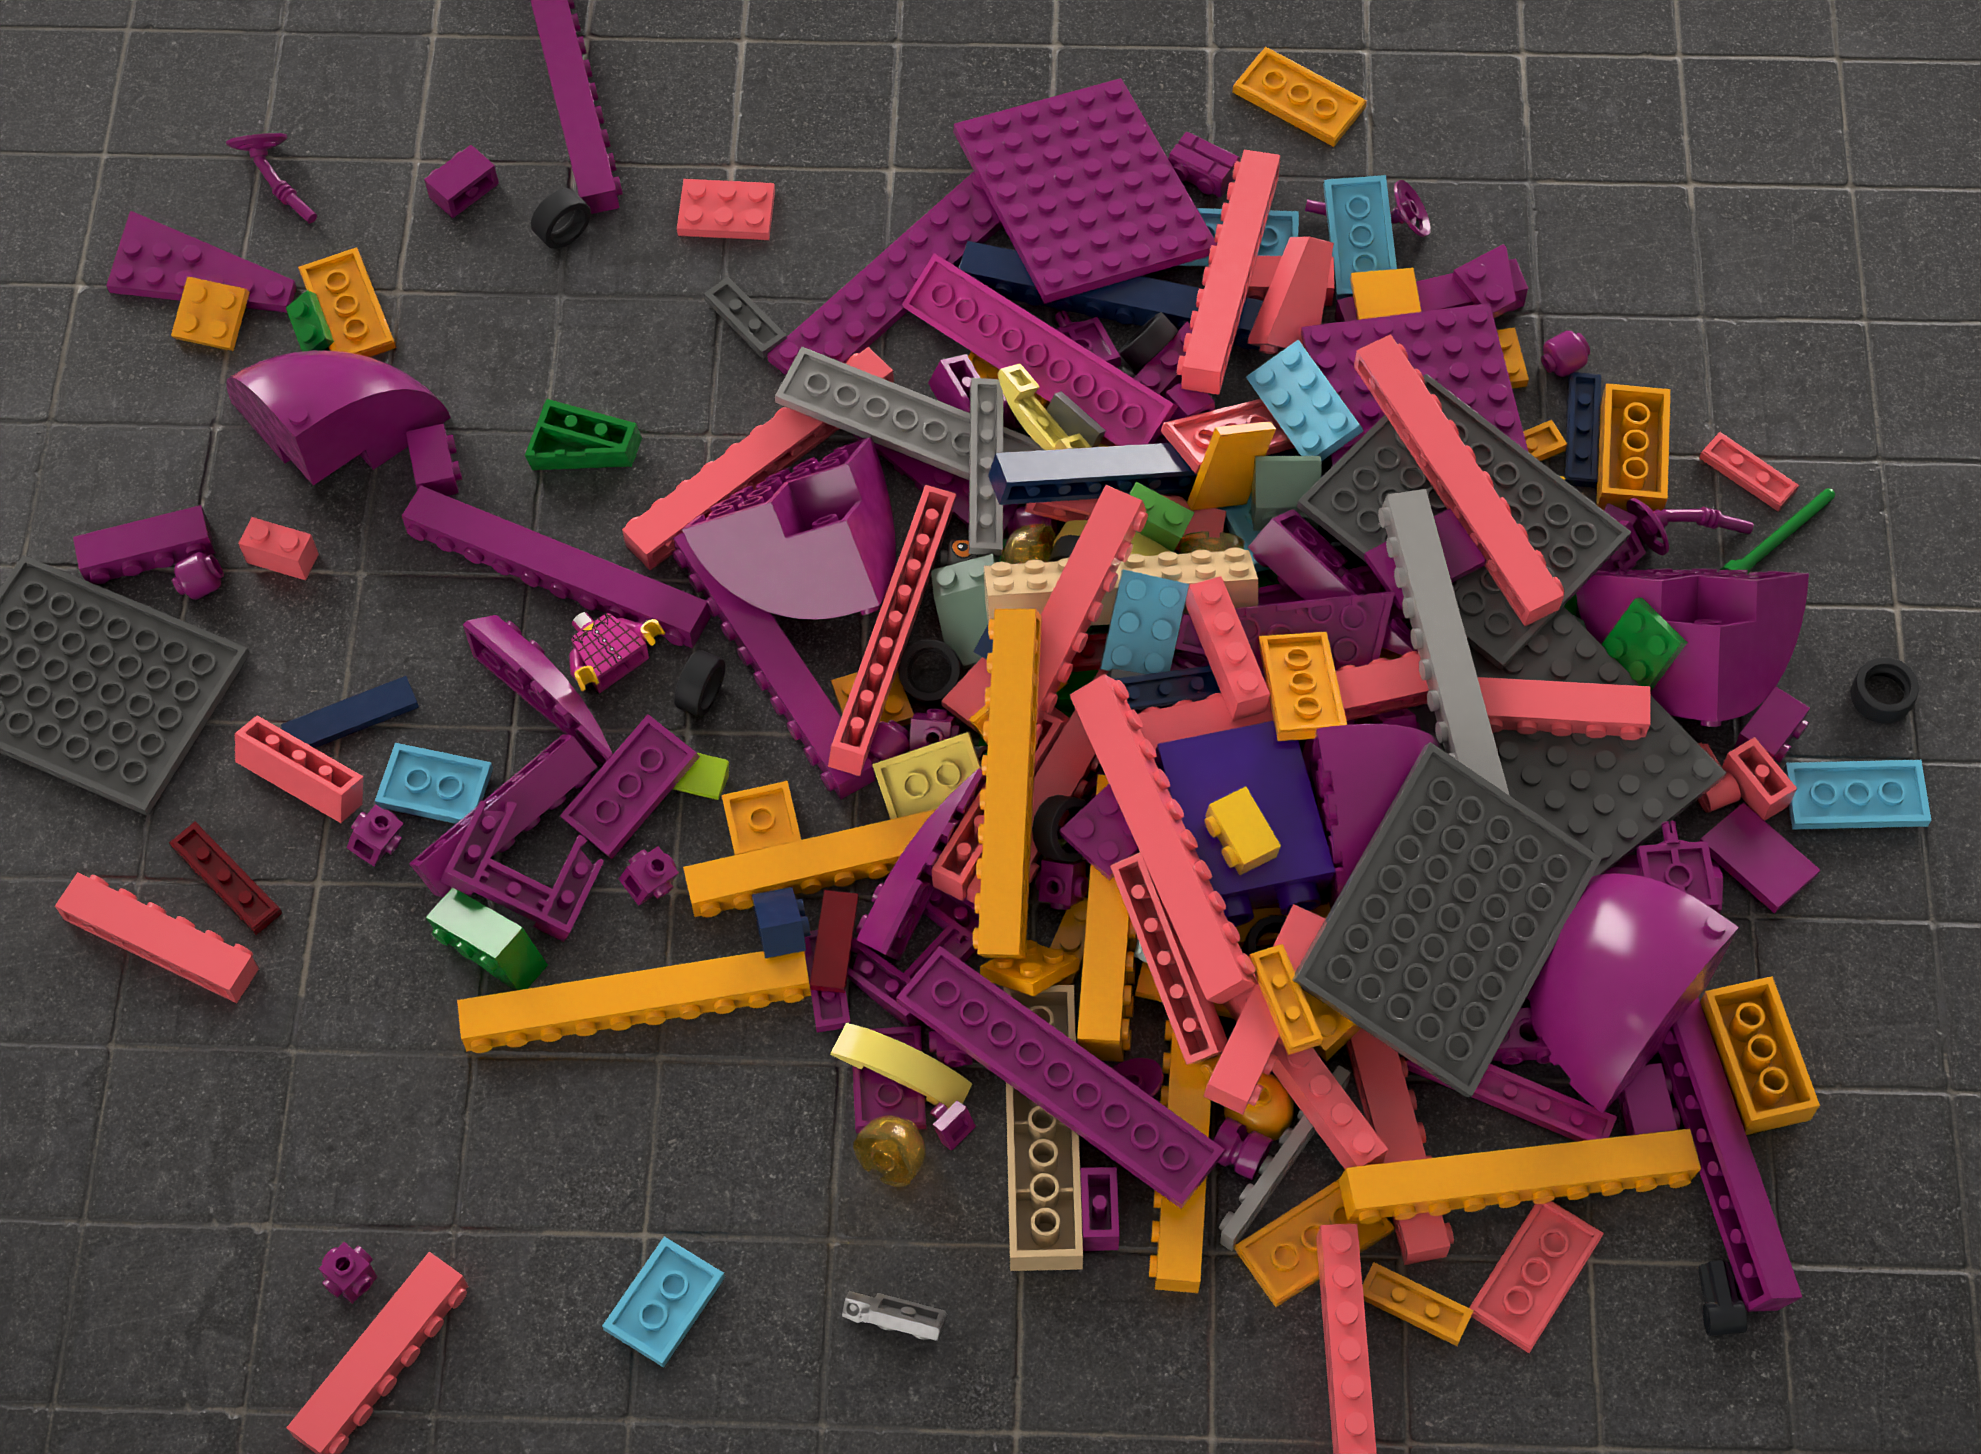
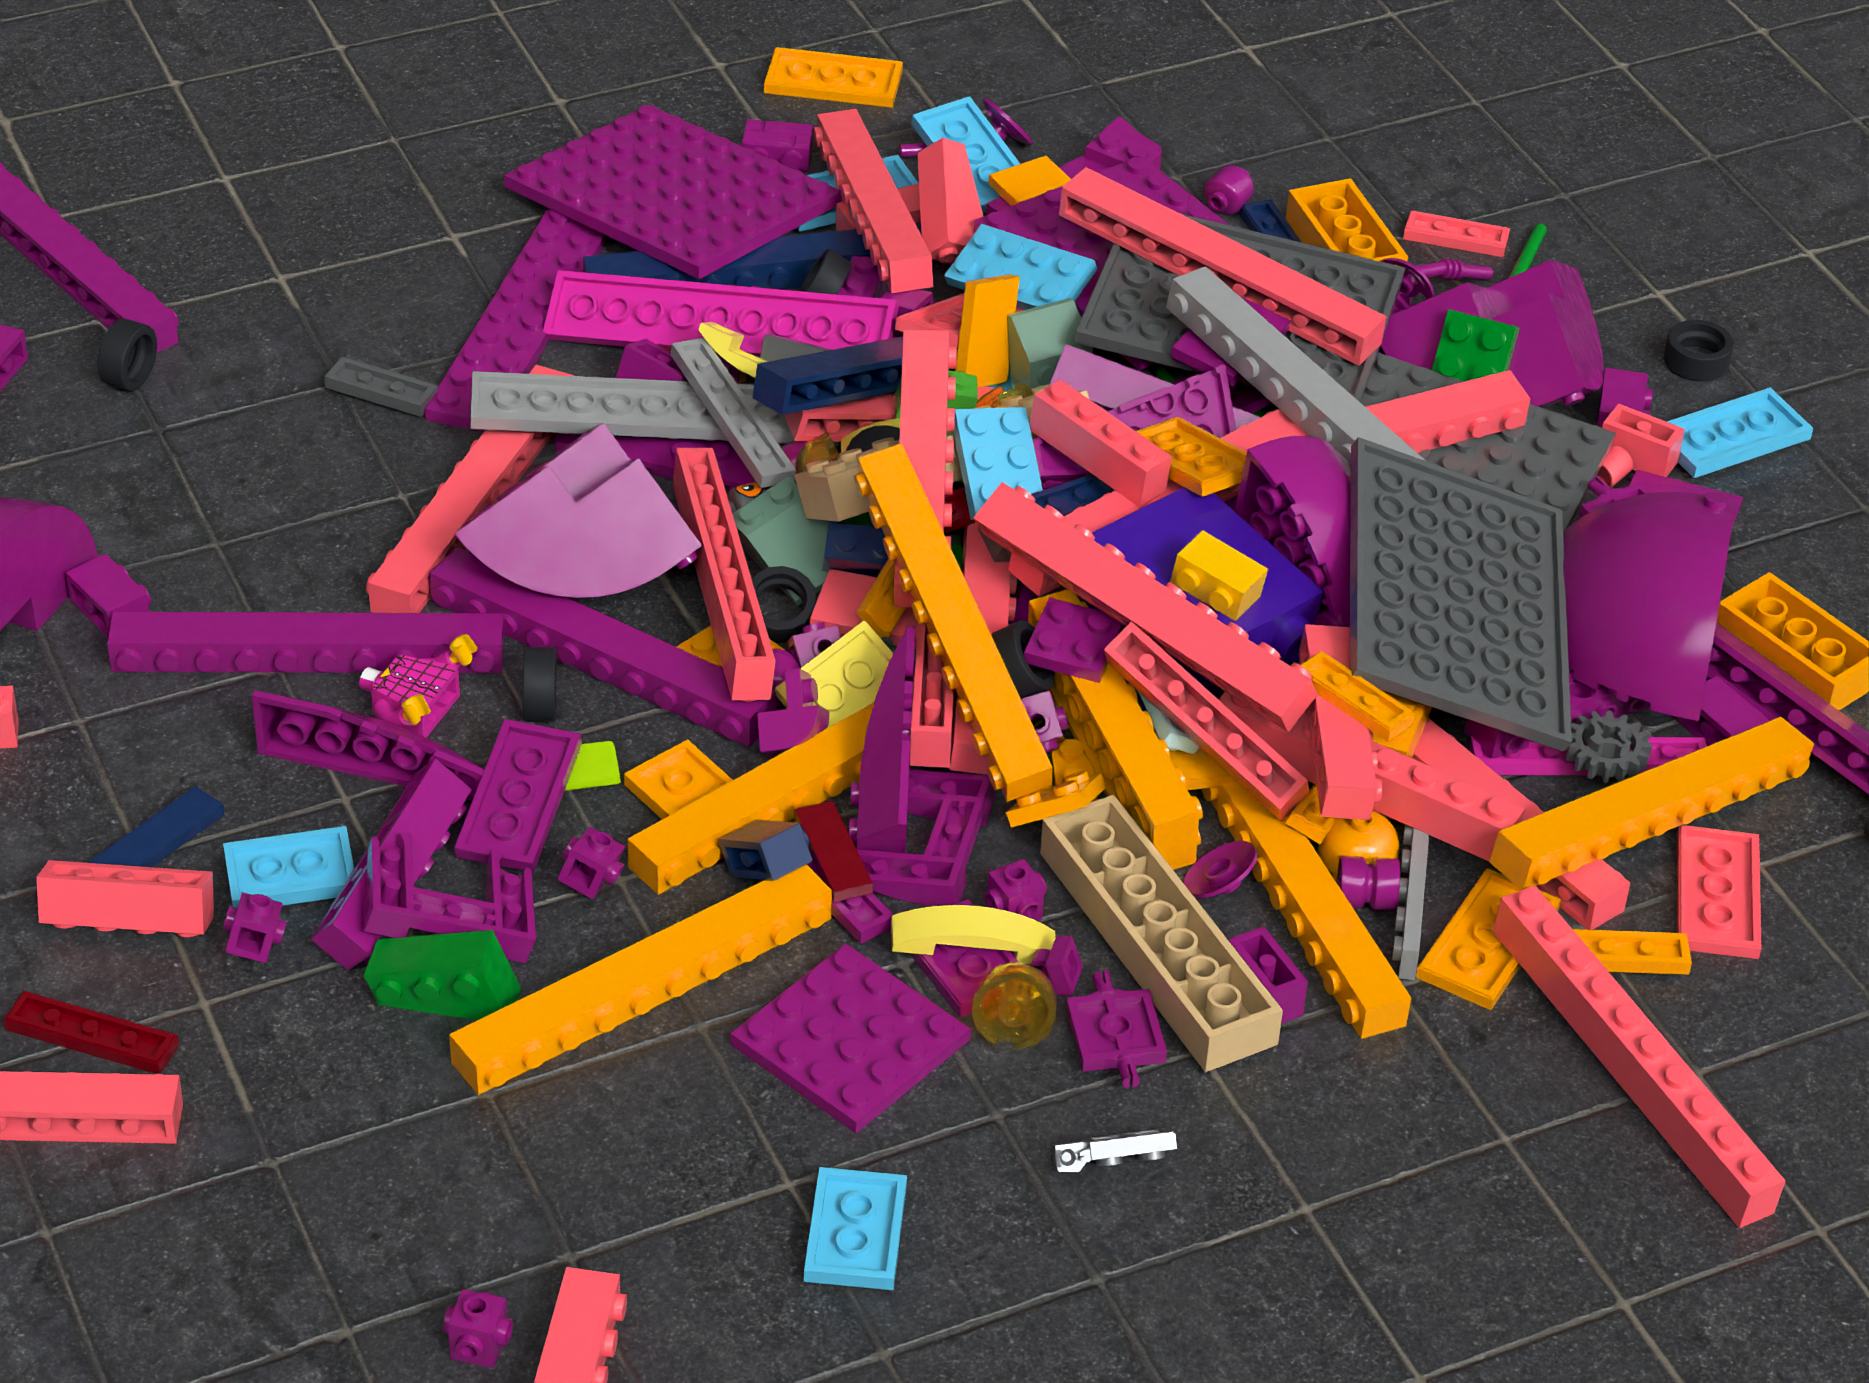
camera: 30 degrees left, 20 degrees down
(581, 439) = (271, 525): green wedge -> none
(726, 209) = (299, 310): coral plate -> none
(761, 1119) = (850, 1037): none -> magenta plate
(875, 802) = (797, 724): none -> magenta brick
(961, 1203) = (1115, 1030): none -> magenta plate
(1061, 1077) = (1156, 864): magenta plate -> none
(1508, 1110) = (1608, 746): none -> dark grey gear

